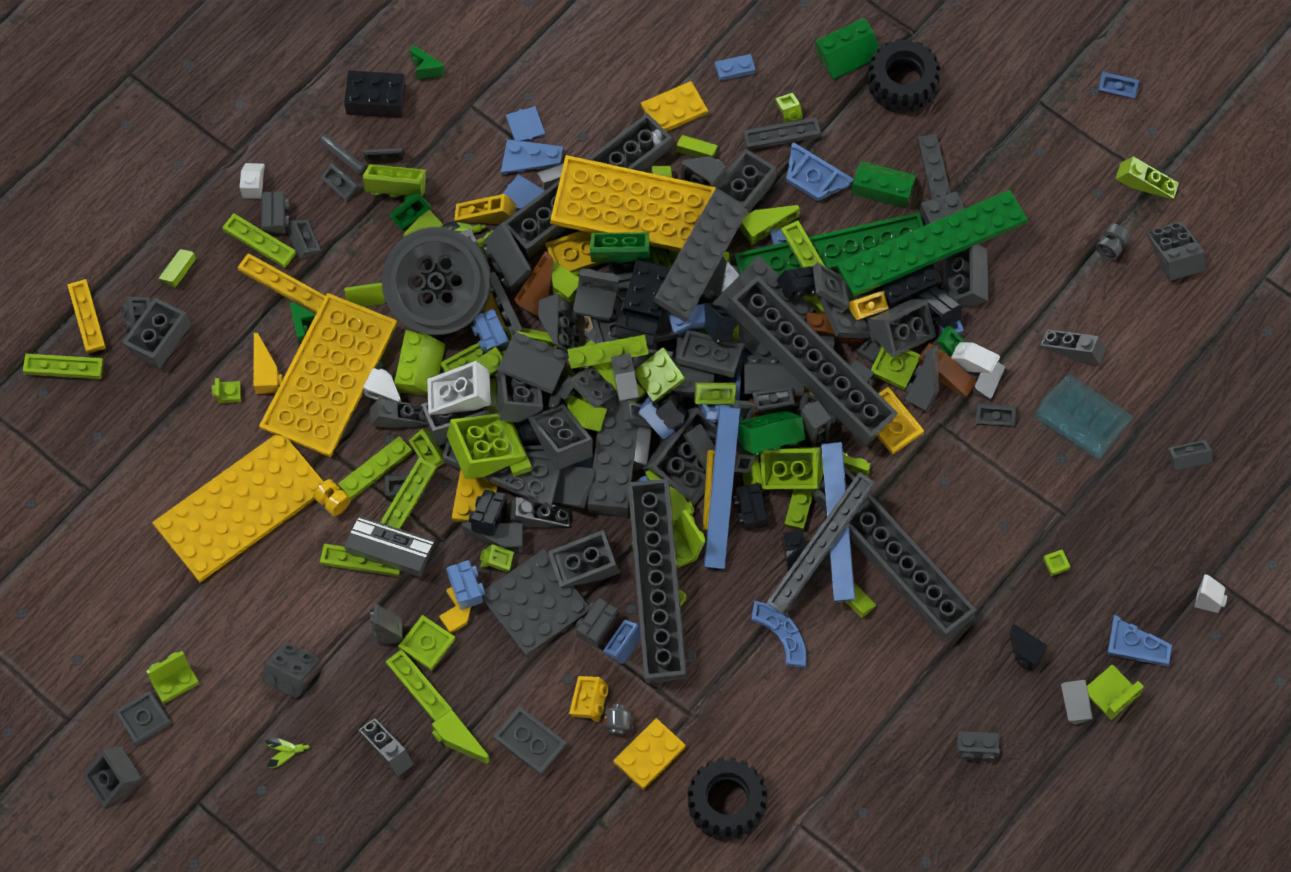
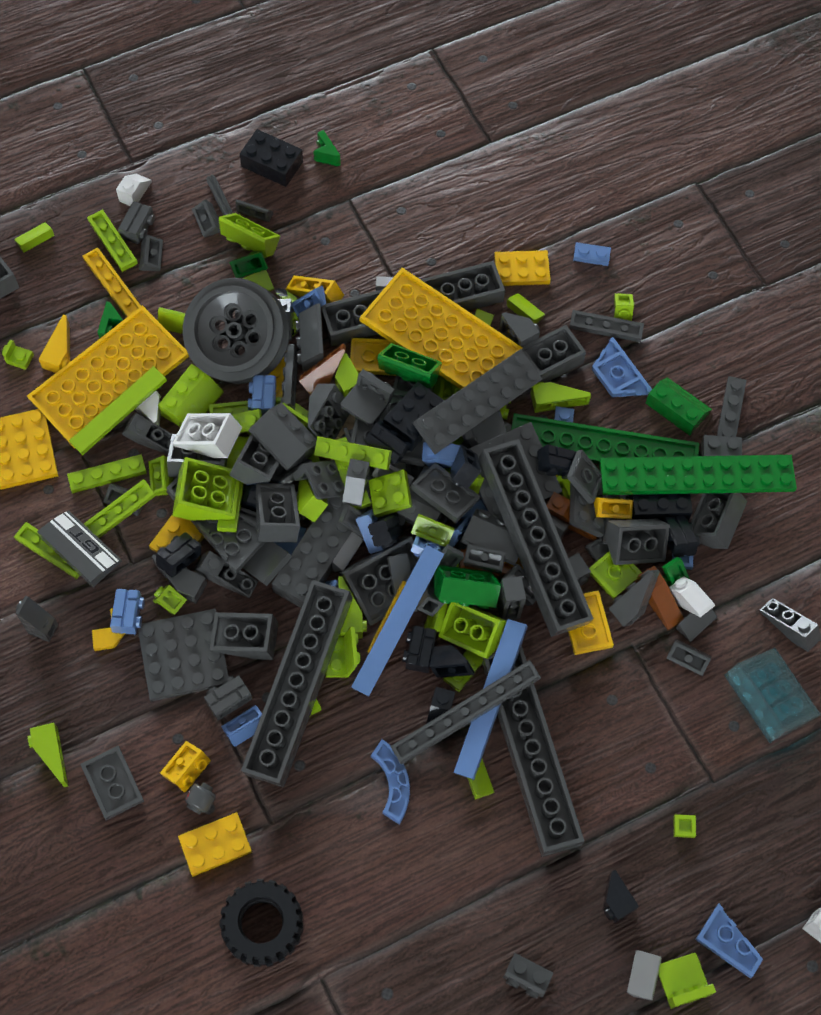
camera: 20 degrees right, 0 degrees up
(334, 499) = (54, 484): yellow wheel -> none
(358, 403) = (117, 410): none -> lime tile
(418, 685) = (40, 686): lime plate -> none
(426, 642) = (68, 650): lime plate -> none
(489, 223) = (314, 297): none -> medium blue slope
(522, 191) = (354, 285): medium blue piece -> none
(525, 124) = (386, 232): medium blue piece -> none
(528, 155) = (376, 259): medium blue wing -> none
(785, 506) = (449, 662): none -> black slope
(800, 245) = (576, 429): lime plate -> none
(847, 48) = (699, 275): green slope -> none
(856, 465) = (535, 652): lime plate -> none
(907, 55) = (745, 298): black tyre -> none

